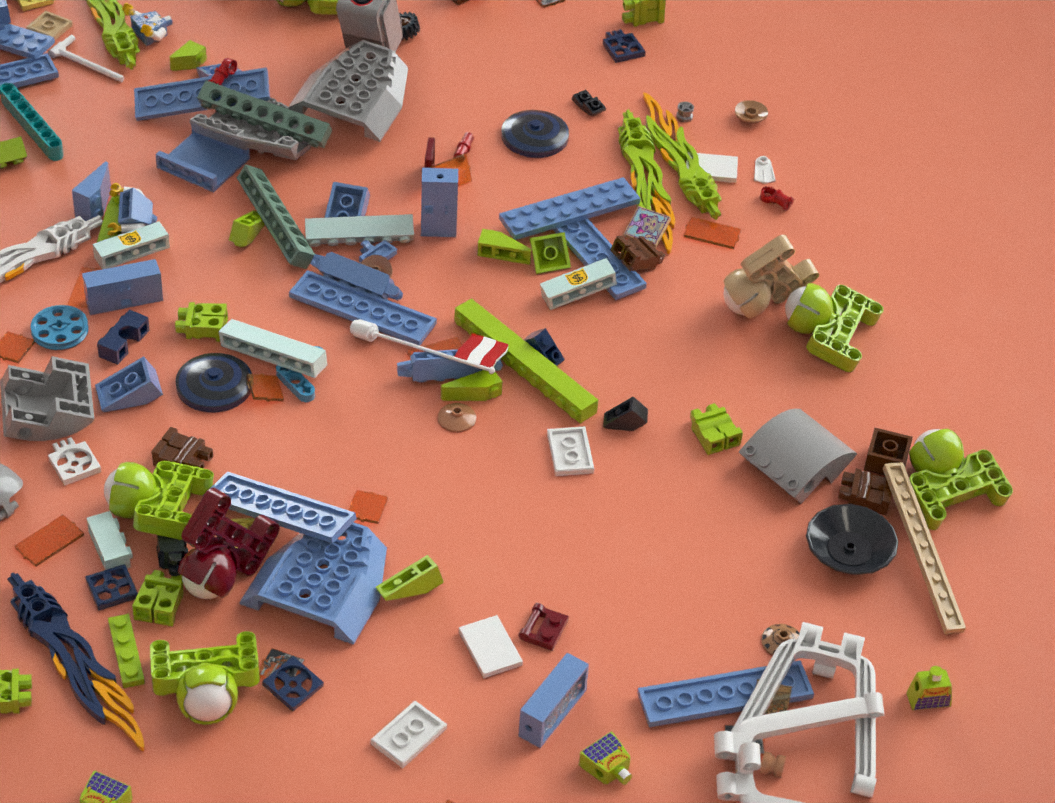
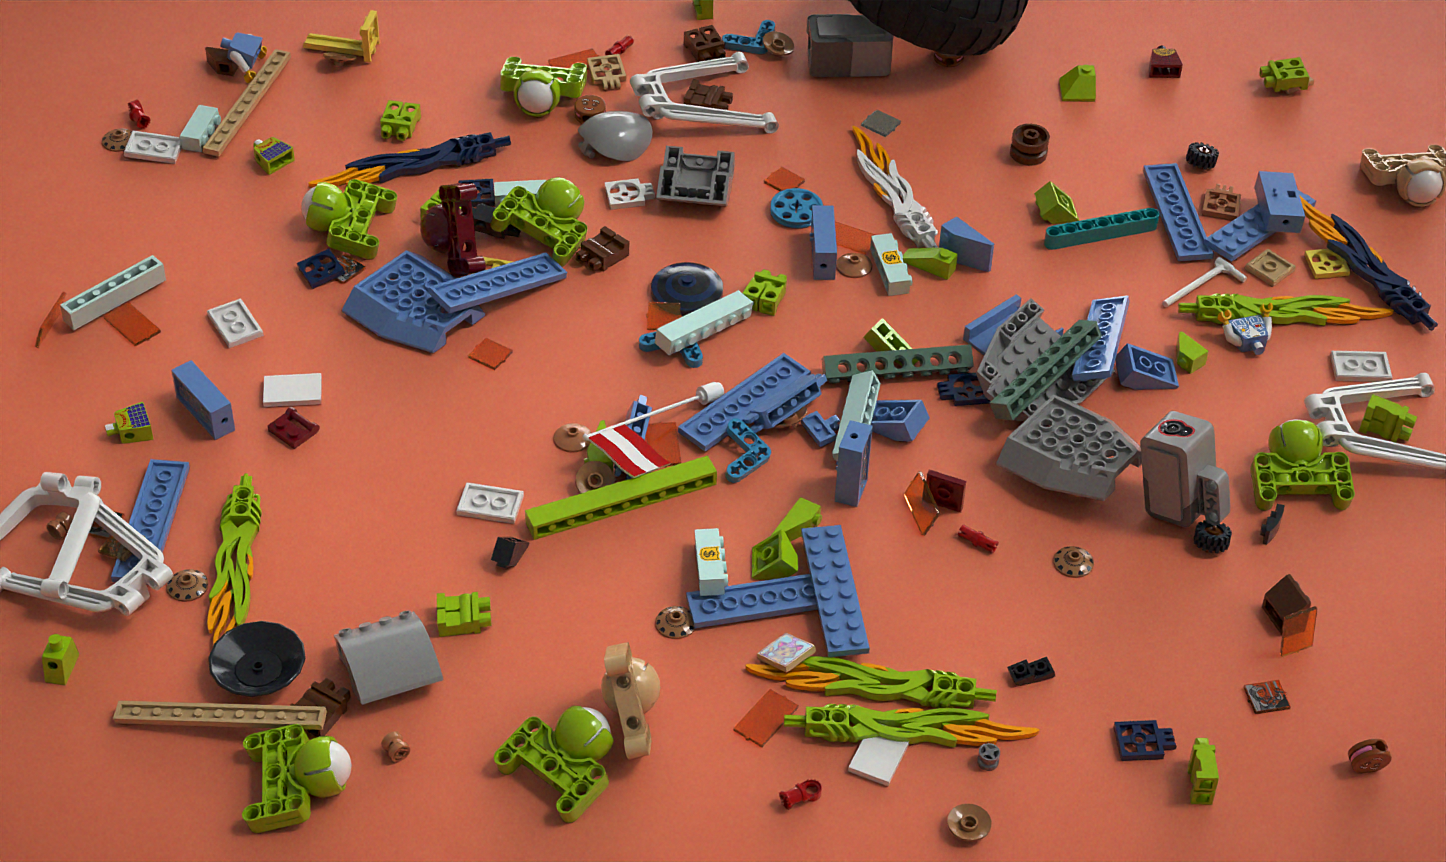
camera: 110 degrees right, 0 degrees up
(49, 540) = (544, 166): clear orange piece -> none
(114, 344) = (775, 245): dark blue arch -> none
(126, 651) = (410, 190): lime plate -> none
(129, 387) = (697, 235): medium blue slope -> none
(134, 209) = (929, 263): medium blue torso -> none
(224, 71) = (1108, 338): red connector -> none
(284, 185) = (949, 392): none -> dark blue piece
(412, 581) = (380, 351): lime slope -> none
(427, 287) = (751, 450): none -> dark azure beam
(459, 98) = (1073, 561): none -> medium nougat dish
(513, 380) = (595, 470): none -> medium nougat dish
(535, 133) = (988, 608): dish -> none
(545, 345) = (630, 513): dark blue slope -> none
(638, 252) = (740, 625): reddish brown hips -> none
(643, 303) = (675, 622): none -> medium nougat dish
(757, 604) = (239, 527): none -> lime piece
(763, 170) = (861, 806): white piece -> none
(876, 423) = (395, 746): none -> nougat wheel
(887, 448) = (357, 734): reddish brown brick -> none

